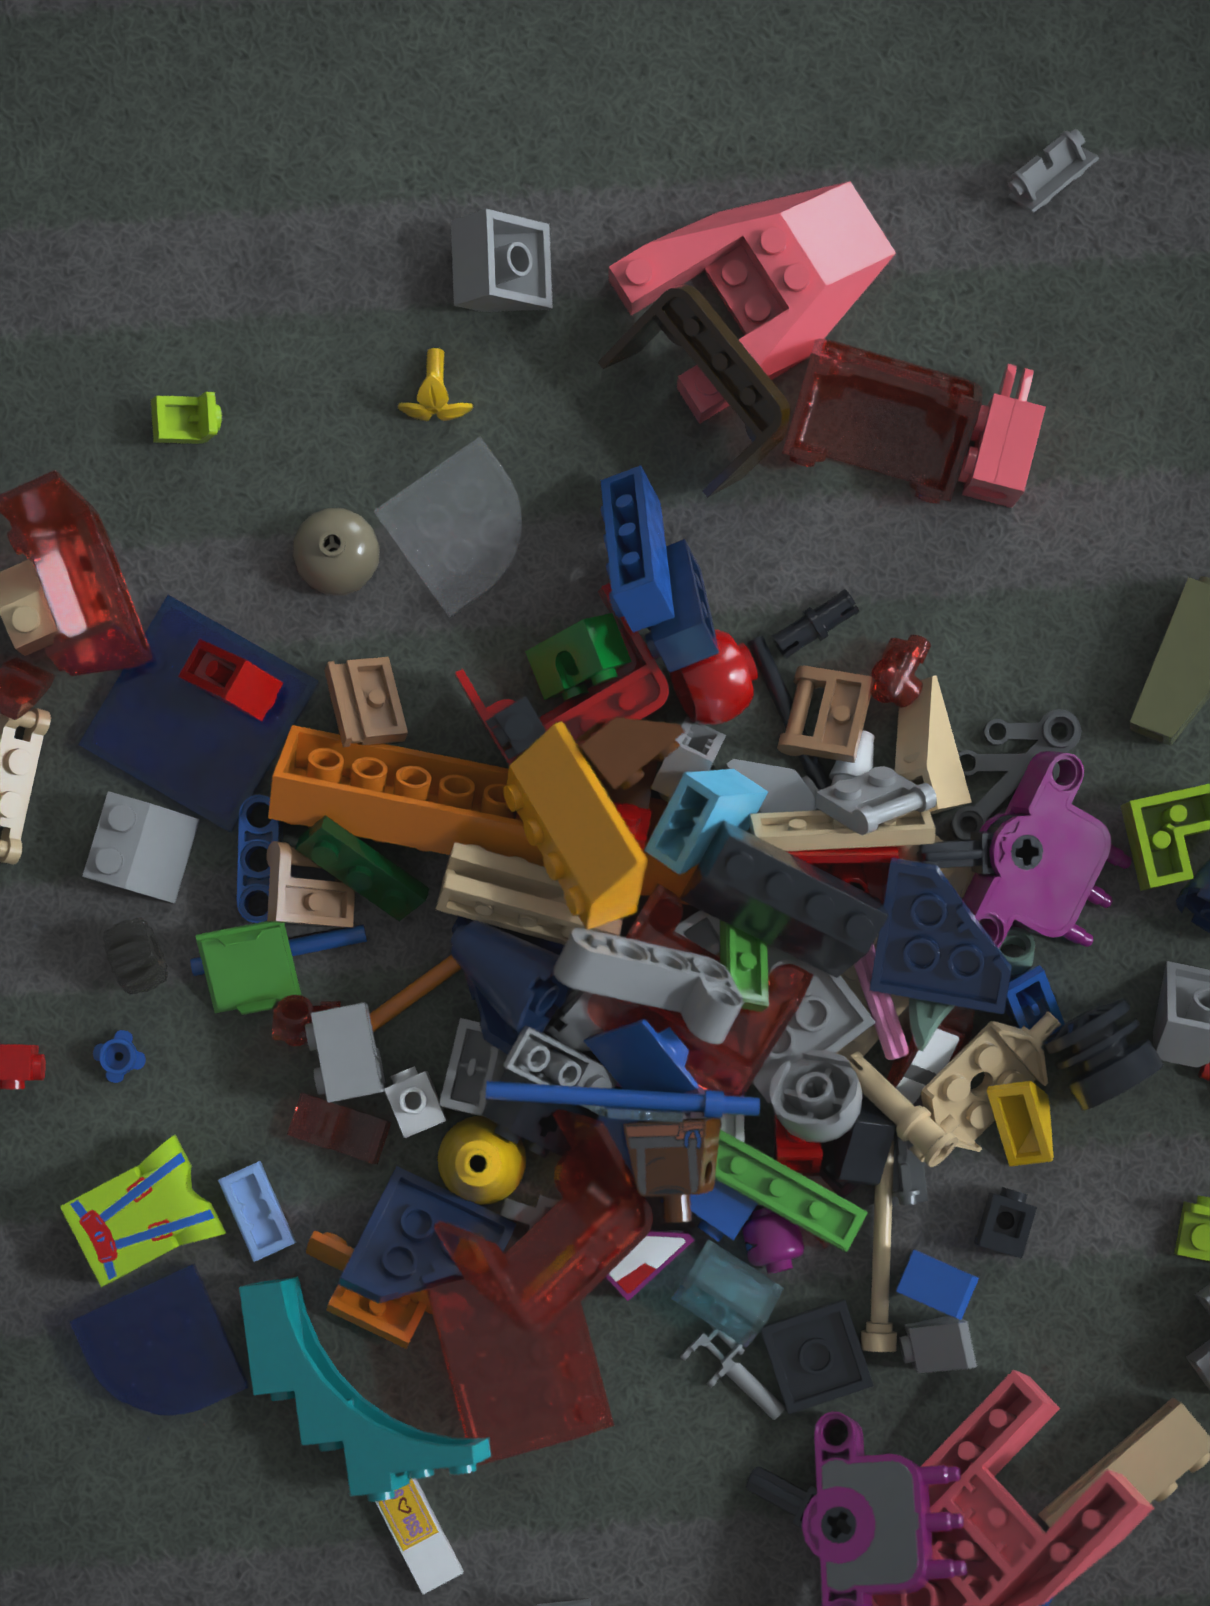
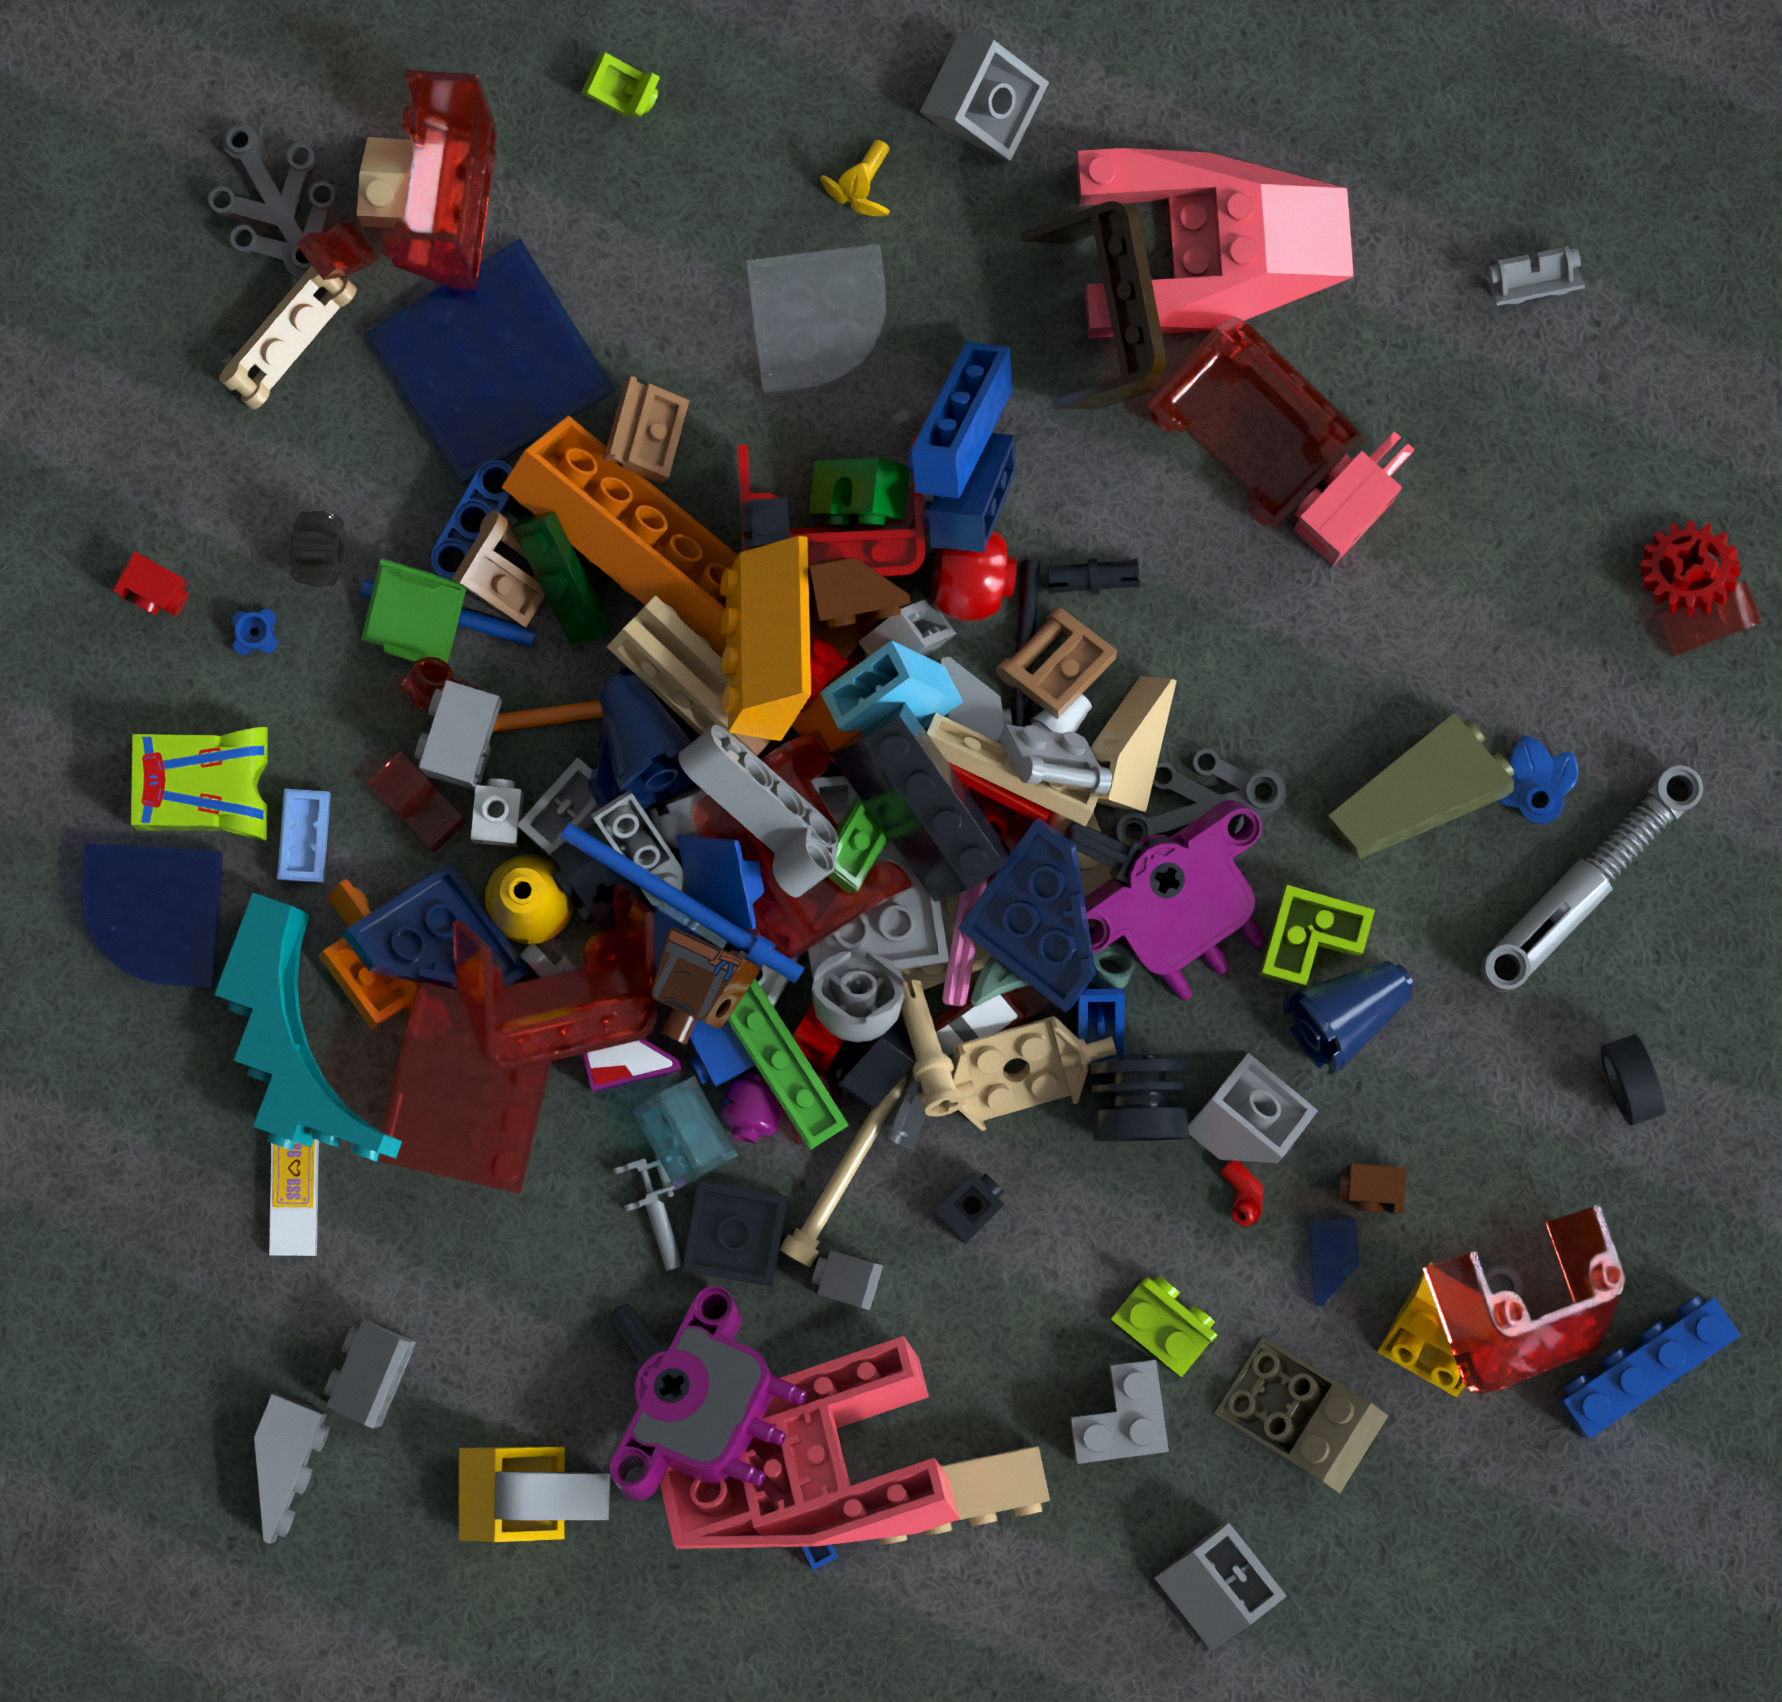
camera: 30 degrees right, 0 degrees up
(141, 847) = (374, 454): light grey slope -> none
(231, 679) = (535, 345): red slope -> none
(349, 565) = (698, 298): dark tan cylinder -> none
(896, 671) = (1140, 657): clear red plate -> none
(936, 1284) = (875, 1222): blue slope -> none
(1023, 1122) = (1036, 1124): yellow slope -> none

